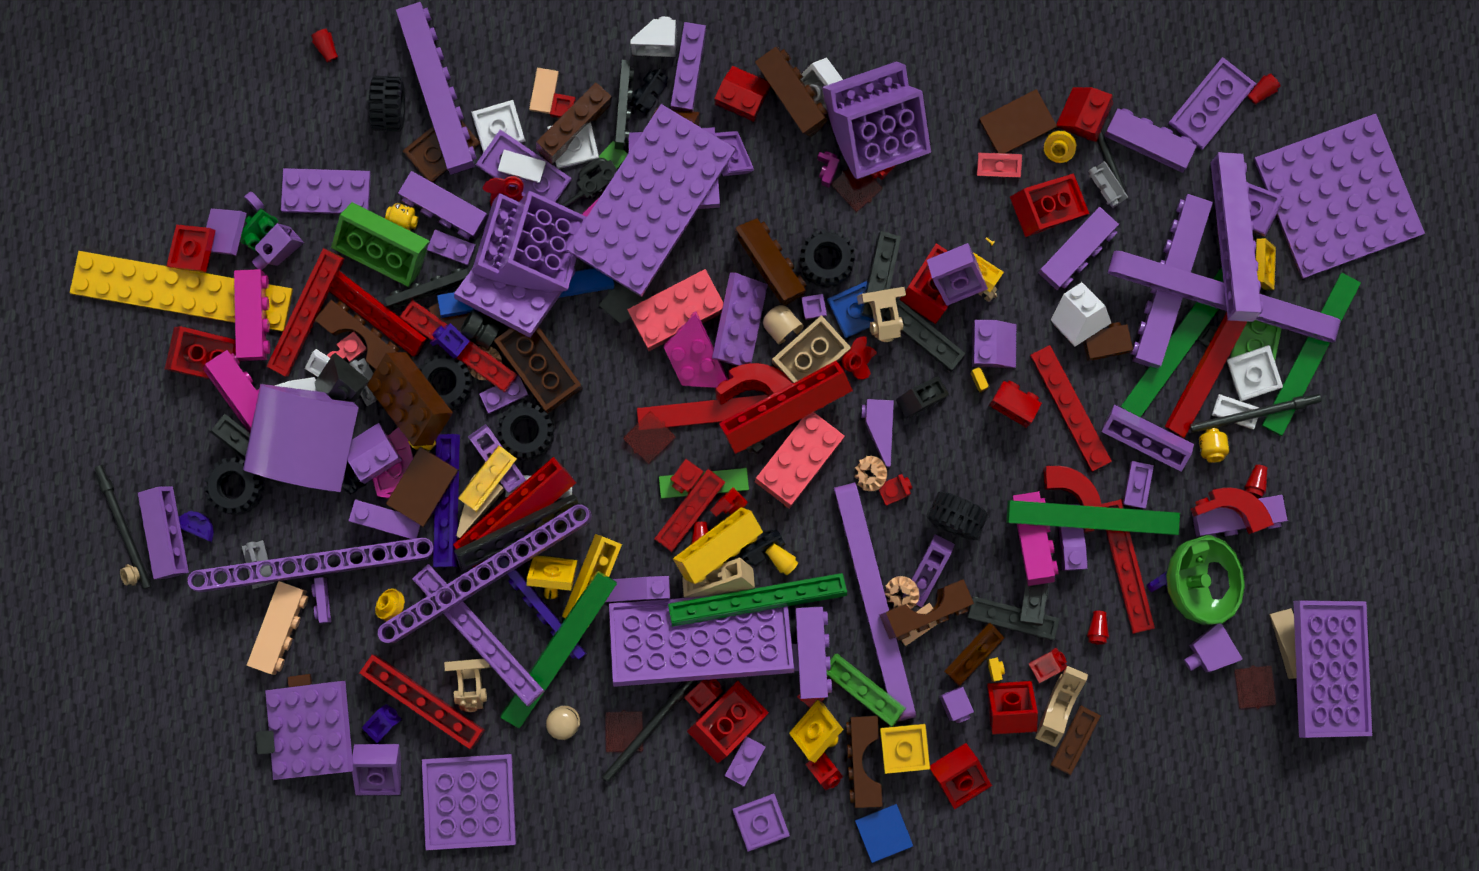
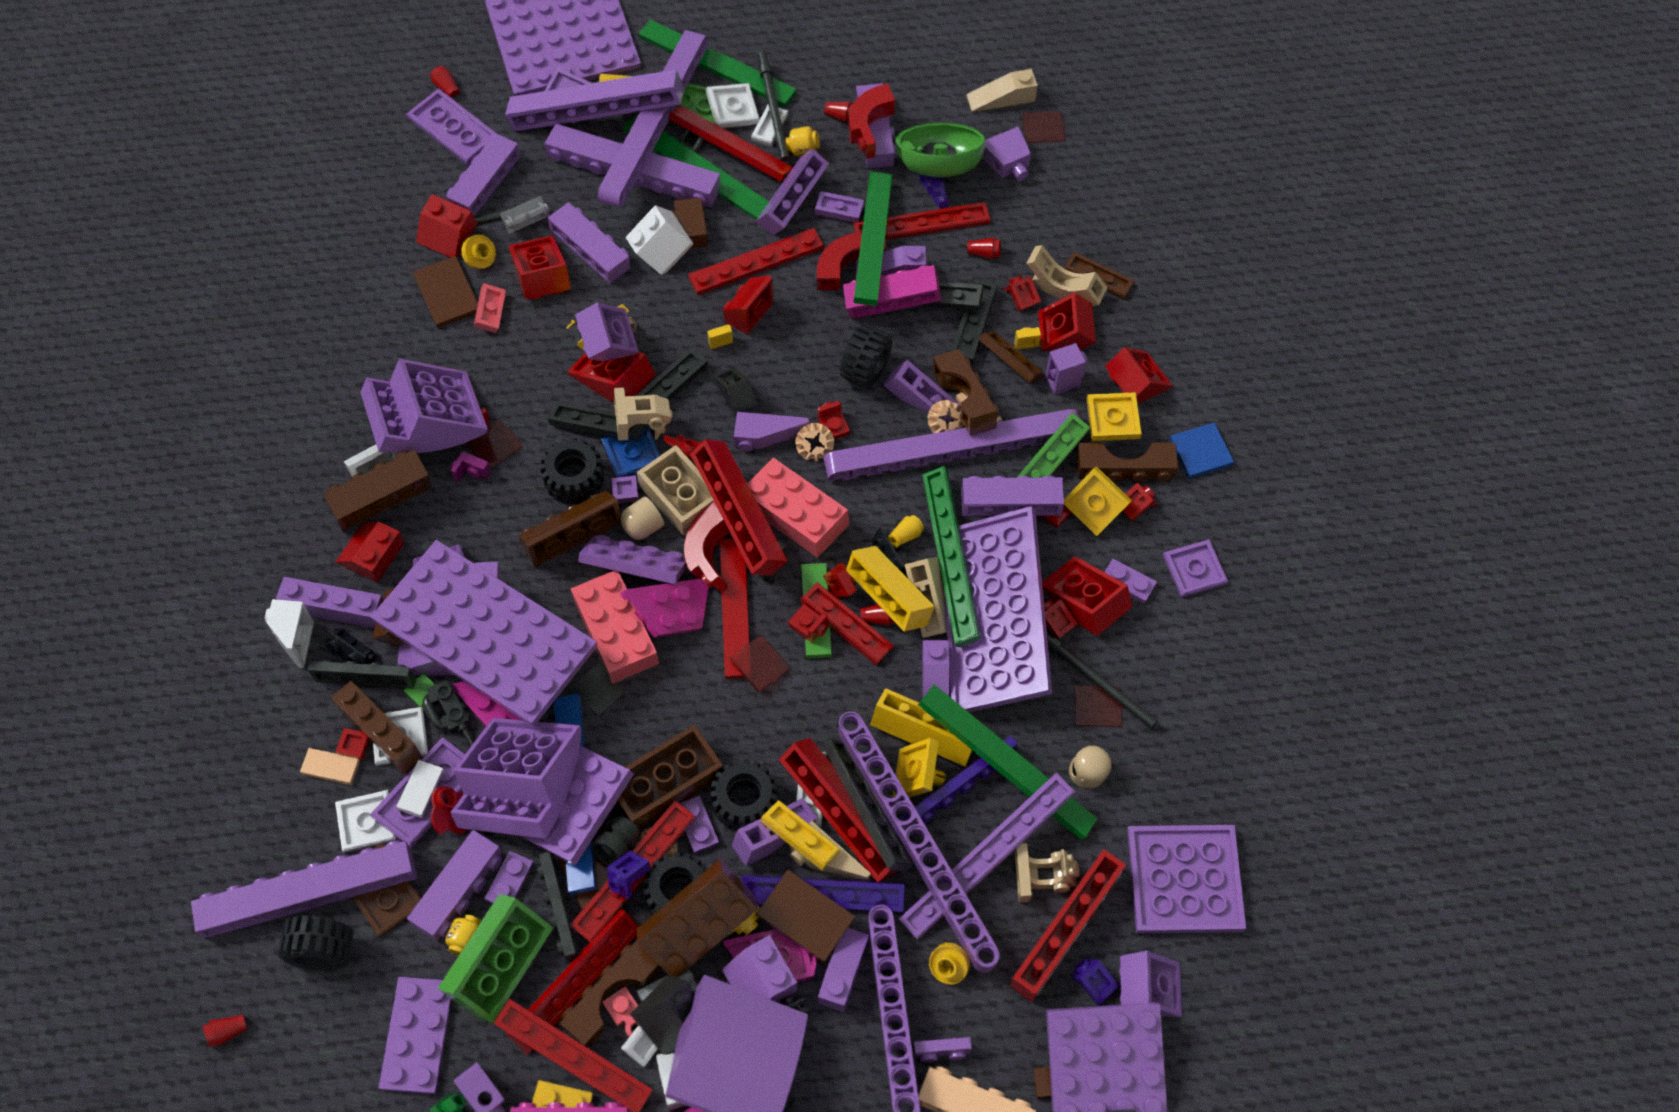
camera: 90 degrees left, 20 degrees down
(993, 344) = (682, 326): medium lavender slope -> none
(1332, 669) = (1028, 56): medium lavender plate -> none

